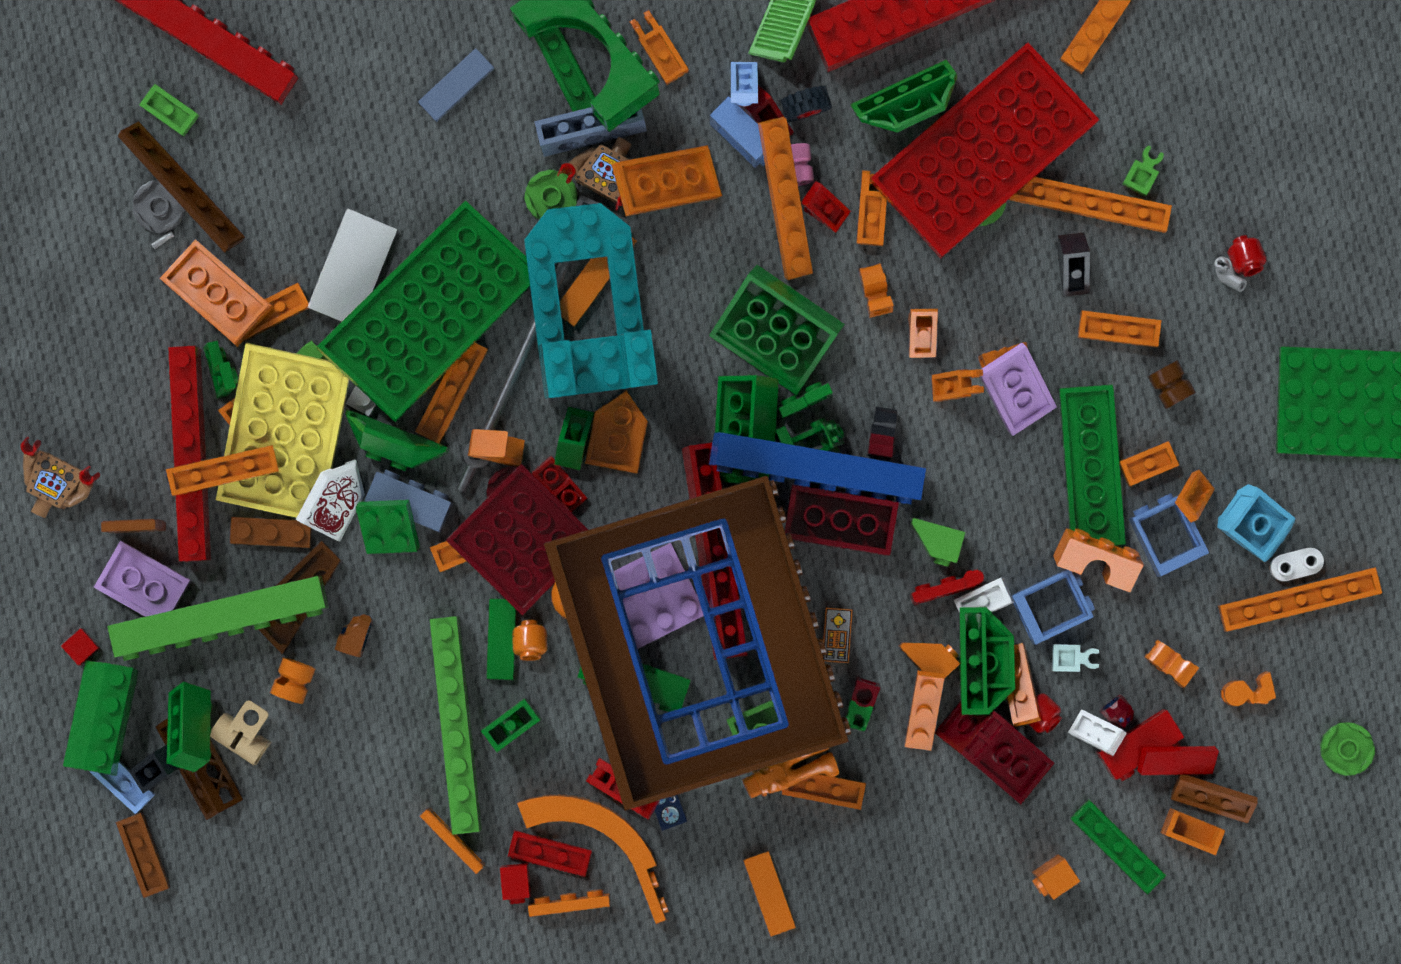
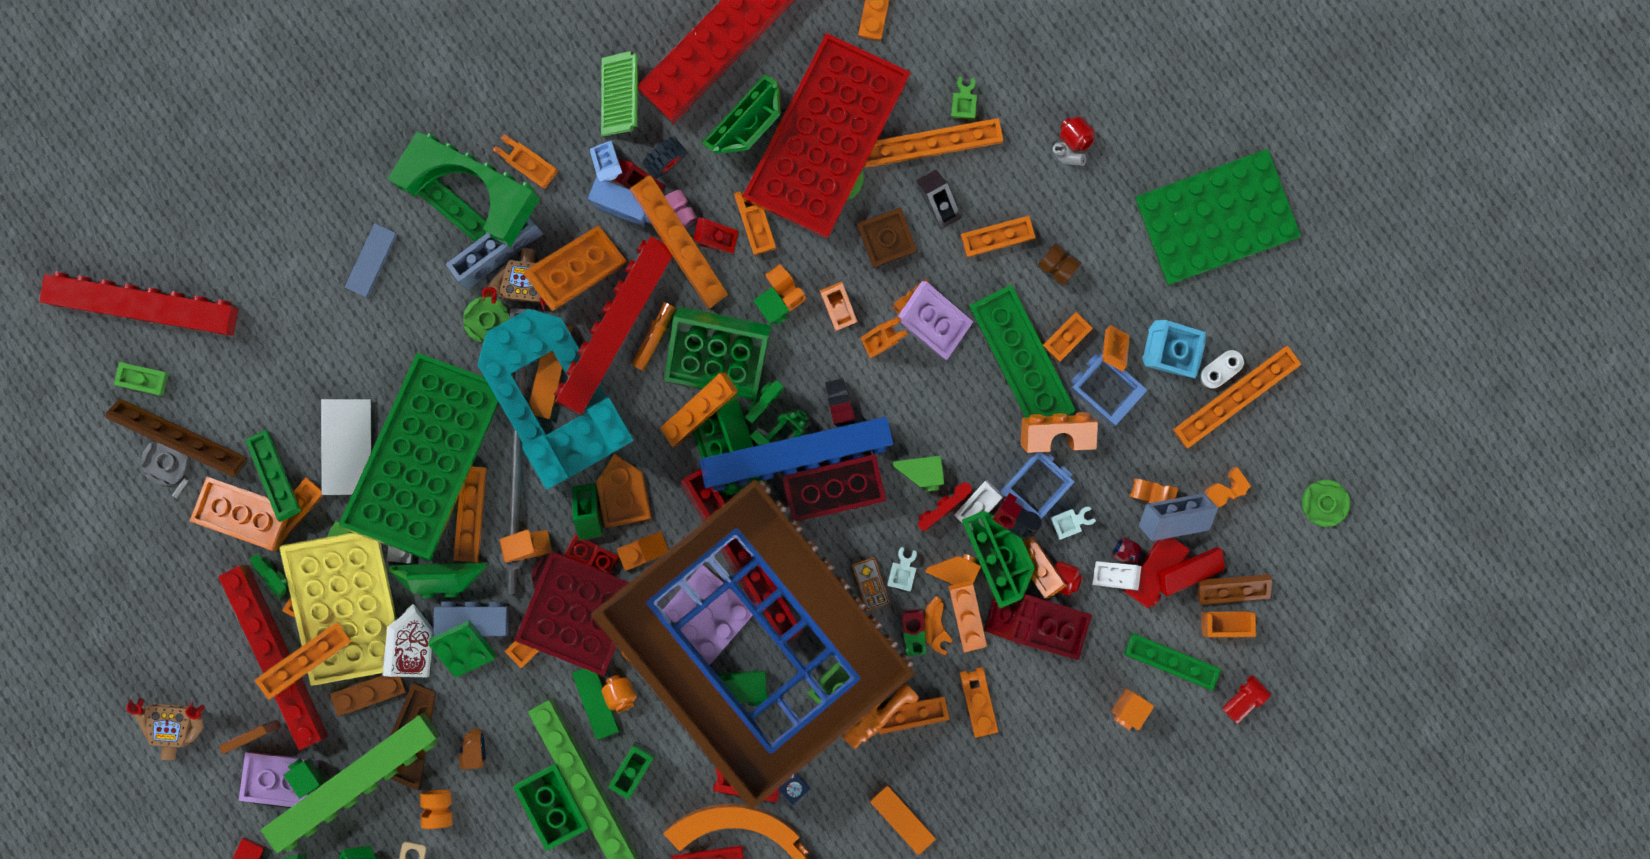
camera: 25 degrees left, 0 degrees up
(172, 591) = (304, 777): none -> green brick
(266, 267) = (273, 475): none -> green tile
(413, 726) = (550, 806): none -> green slope
(614, 503) = (642, 550): none -> orange slope
(682, 258) = (614, 327): none -> red brick
(717, 285) = (653, 337): none -> orange pin
(734, 380) = (699, 409): none -> orange plate
(853, 305) = (772, 307): none -> green brick
(873, 638) = (902, 574): none -> light aqua plate
(883, 710) = (933, 627): none -> orange piece
(898, 805) = (979, 703): none -> orange plate
(1002, 282) = (886, 237): none -> reddish brown plate
(1018, 630) = (1016, 518): none -> leg
(1181, 916) = (1249, 696): none -> red piece
(1186, 697) = (1178, 517): none -> sand blue brick

